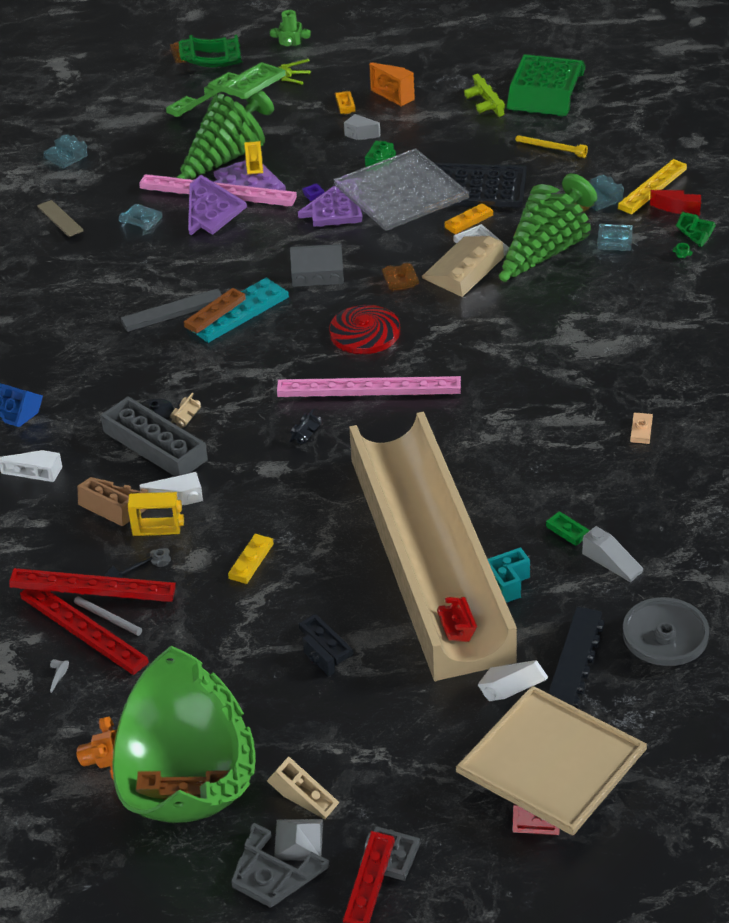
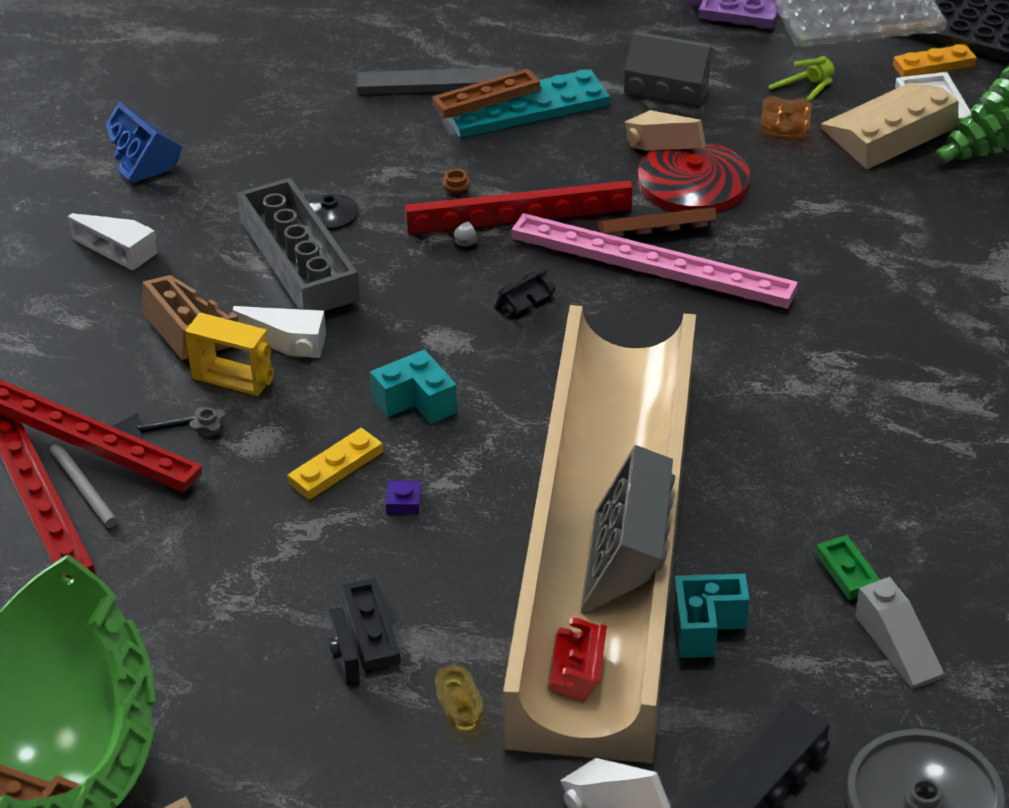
camera: 20 degrees right, 0 degrees up
(188, 406) = (357, 226): tan hinge -> none
(224, 370) = (456, 181): none -> dark orange plate
(249, 402) = (465, 235): none -> light grey hinge
(270, 377) = (509, 207): none -> red plate
(274, 498) = (417, 383): none -> teal brick
(301, 565) = (403, 497): none -> dark purple plate
(336, 306) = (664, 132): none -> tan slope
(353, 365) = (669, 221): none -> dark orange plate
(397, 661) = (461, 700): none -> clear yellow plate
(404, 243) = (819, 71): none -> lime plant
(450, 542) = (629, 528): none -> dark grey slope

